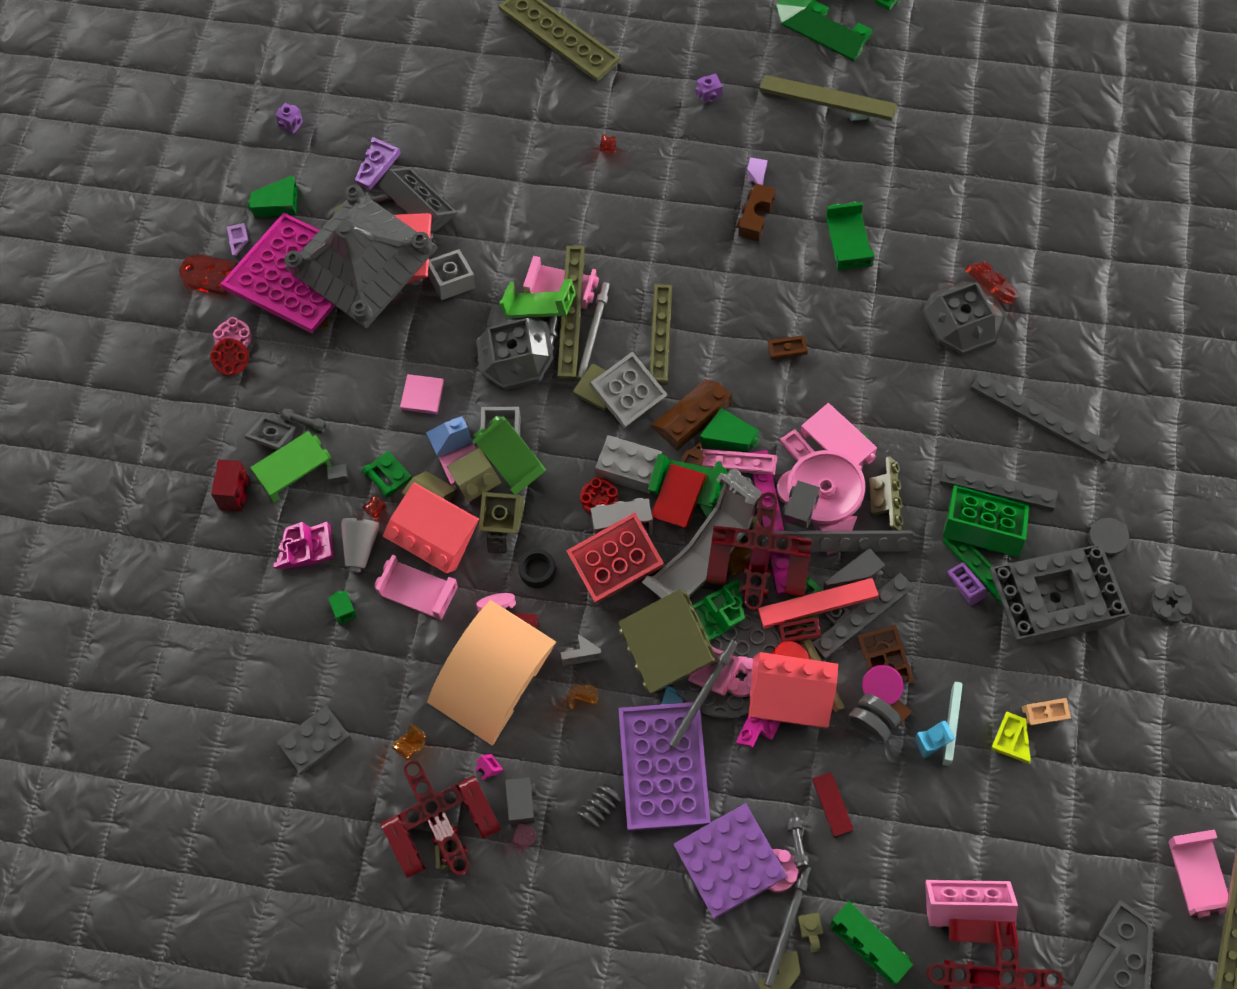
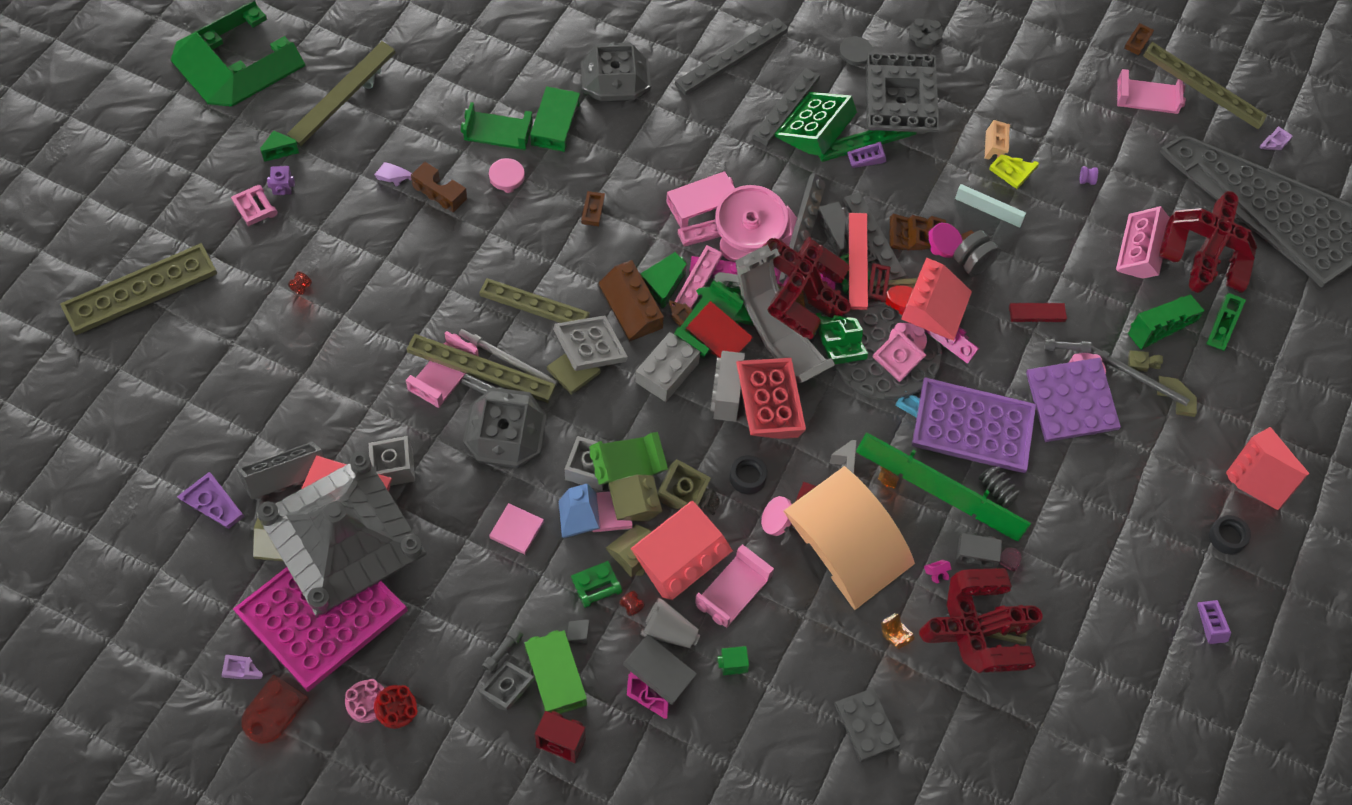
camera: 80 degrees left, 5 degrees down
(274, 199) = (211, 614): green slope -> none
(289, 118) = (108, 573): medium lavender brick -> none
(311, 544) = (659, 669): none -> dark grey tile
(537, 304) = (463, 389): bright green panel -> none
(570, 760) = (943, 487): none -> green piece
(598, 492) = (690, 403): red tile -> none
(667, 641) = (865, 382): olive panel -> none
(673, 77) = (249, 209): none -> bright pink plate
(723, 659) = (898, 341): dark grey bar -> none
(746, 72) = (278, 146): none -> green slope
(796, 262) = (506, 174): none -> bright pink tile
(801, 504) = (762, 230): dark grey brick -> none
(881, 278) = (554, 118): none -> green panel
(885, 494) = (774, 183): olive bracket -> none
(933, 739) = (1004, 220): medium azure slope -> none
(992, 281) = (593, 39): clear red plate -> none
(1041, 823) = (1088, 175): none -> medium lavender wheel

